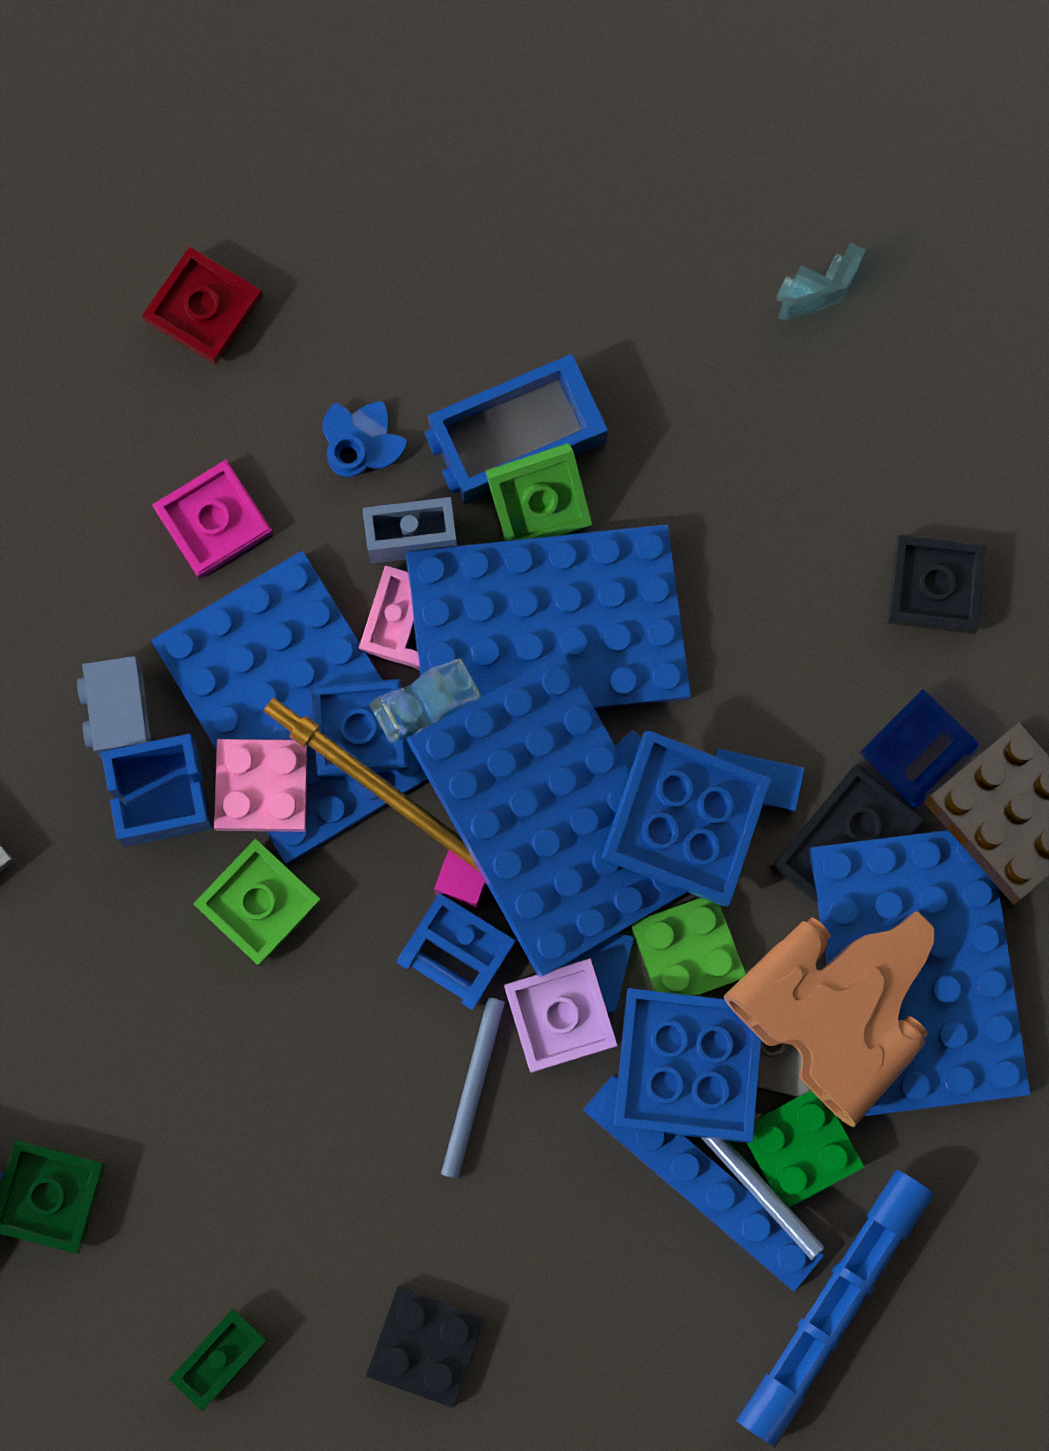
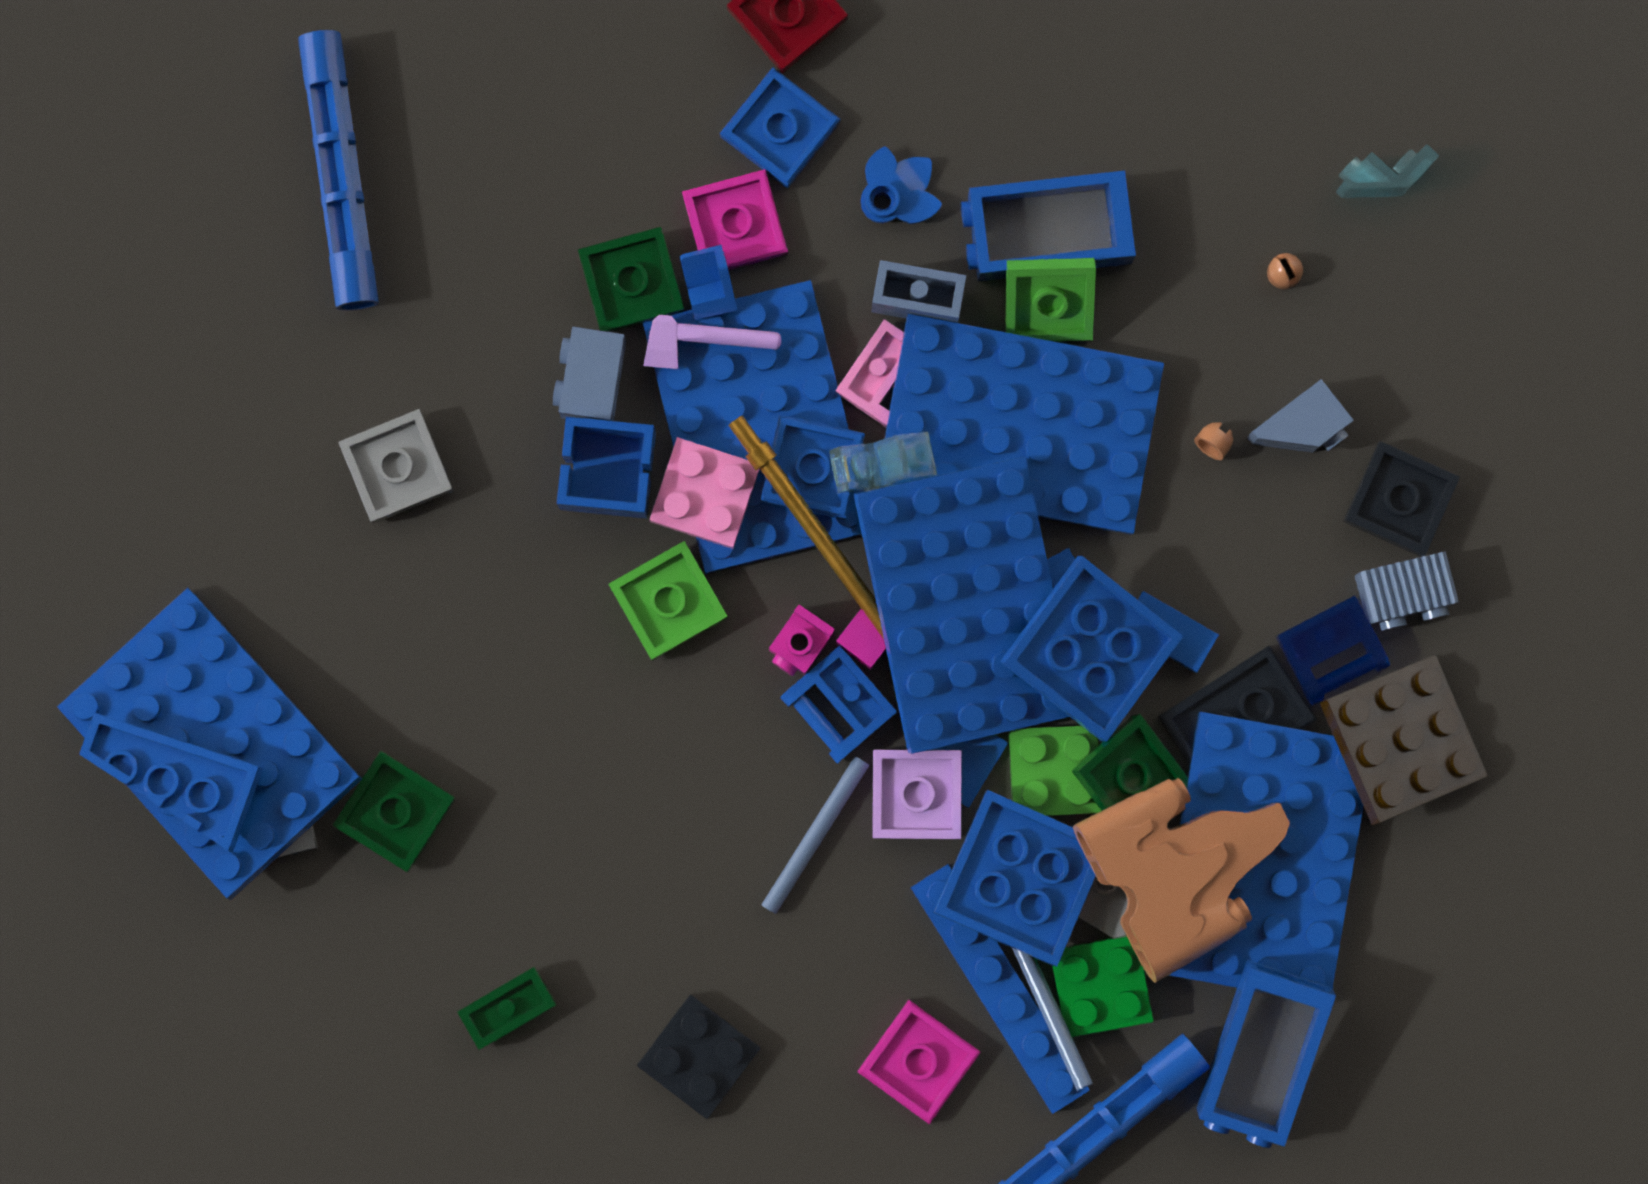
camera: 15 degrees right, 5 degrees up
(127, 603) = (630, 280): none -> dark green plate
(176, 642) = (666, 332): none -> lavender piece
(203, 581) = (708, 282): none -> blue panel
(229, 416) = (780, 127): none -> blue tile
(402, 882) = (806, 624): none -> dark pink brick
(645, 1281) = (918, 1061): none -> dark pink tile
(739, 584) = (1214, 441): none -> nougat hinge
(748, 407) = (1278, 275): none -> nougat hinge
(756, 921) = (1127, 764): none -> dark green plate
(821, 539) = (1305, 423): none -> sand blue slope
(971, 668) = (1407, 590): none -> sand blue brick
(984, 1164) = (1265, 1054): none -> window

